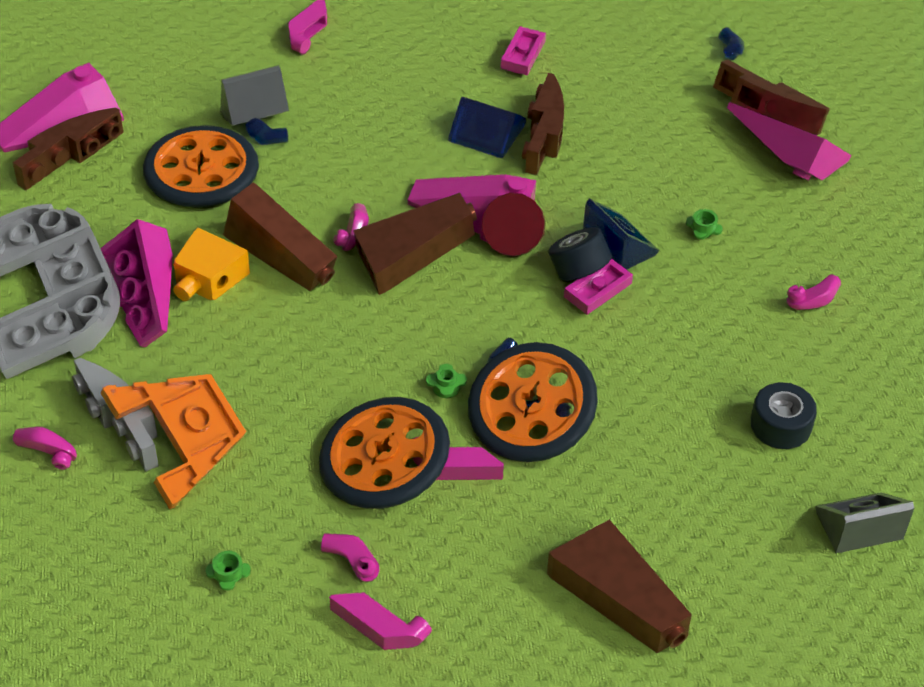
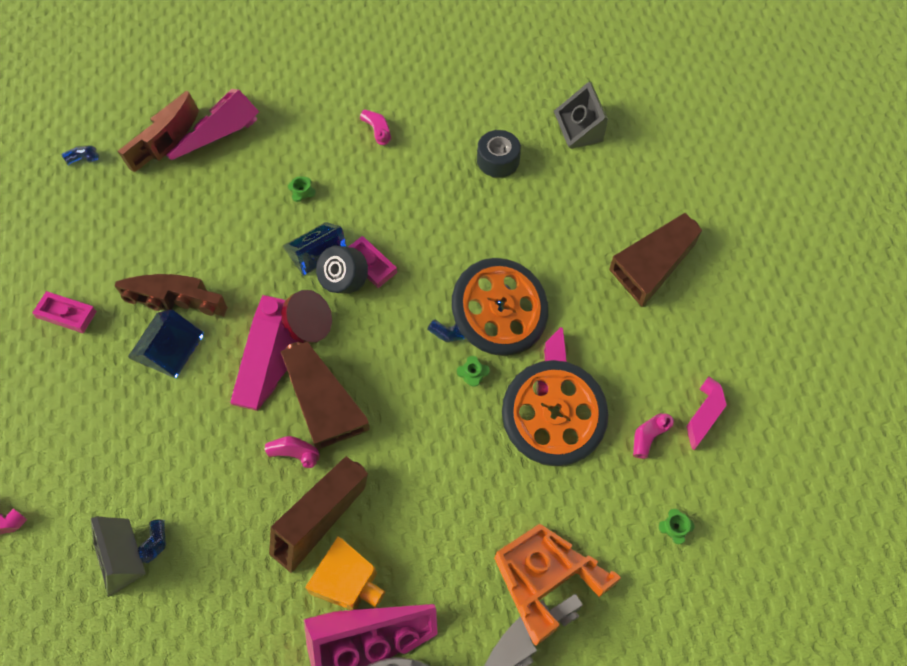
camera: 90 degrees left, 15 degrees up
(197, 193) = (214, 641): wedge -> none

